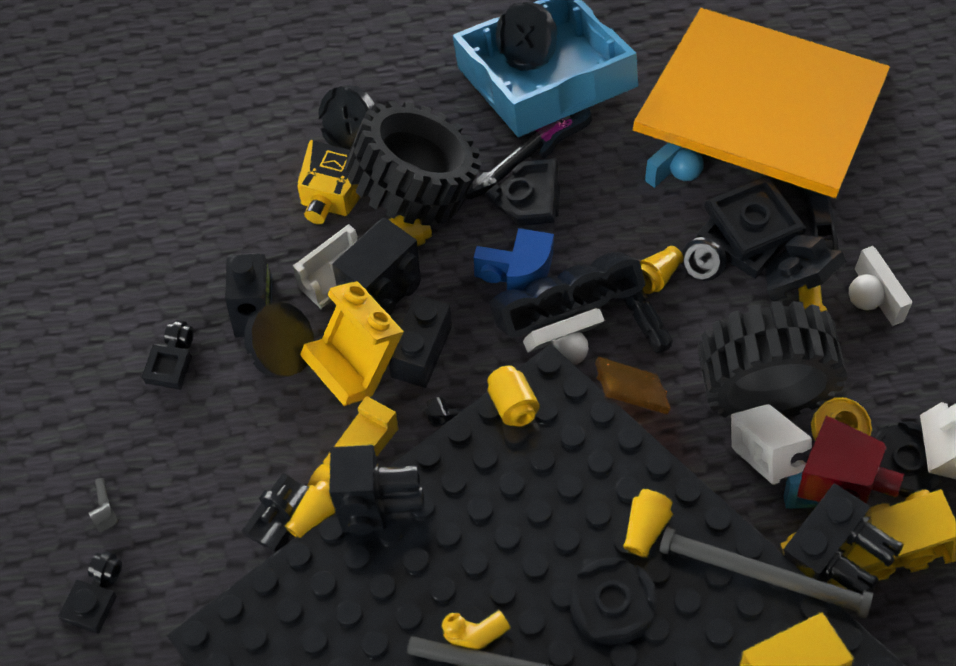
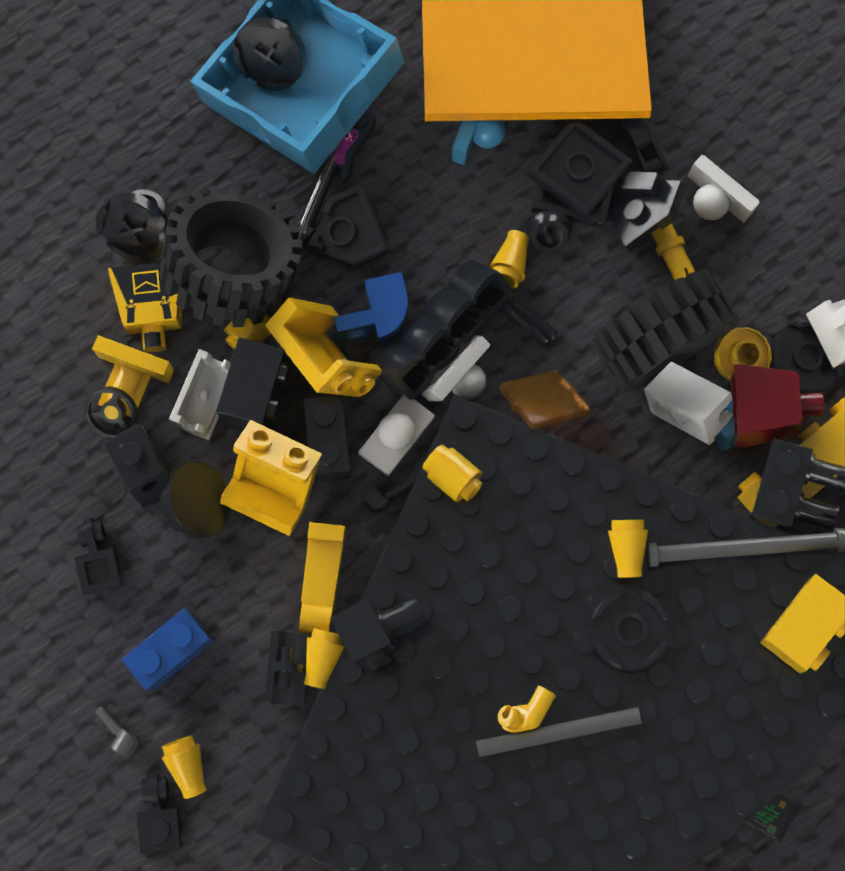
camera: 30 degrees left, 20 degrees up
(142, 558) = (185, 765): none -> yellow cone
(185, 452) = (167, 650): none -> blue brick
(281, 235) = (125, 384): none -> yellow piece
(444, 250) = (301, 332): none -> yellow panel
(470, 372) = (396, 435): none -> white tile

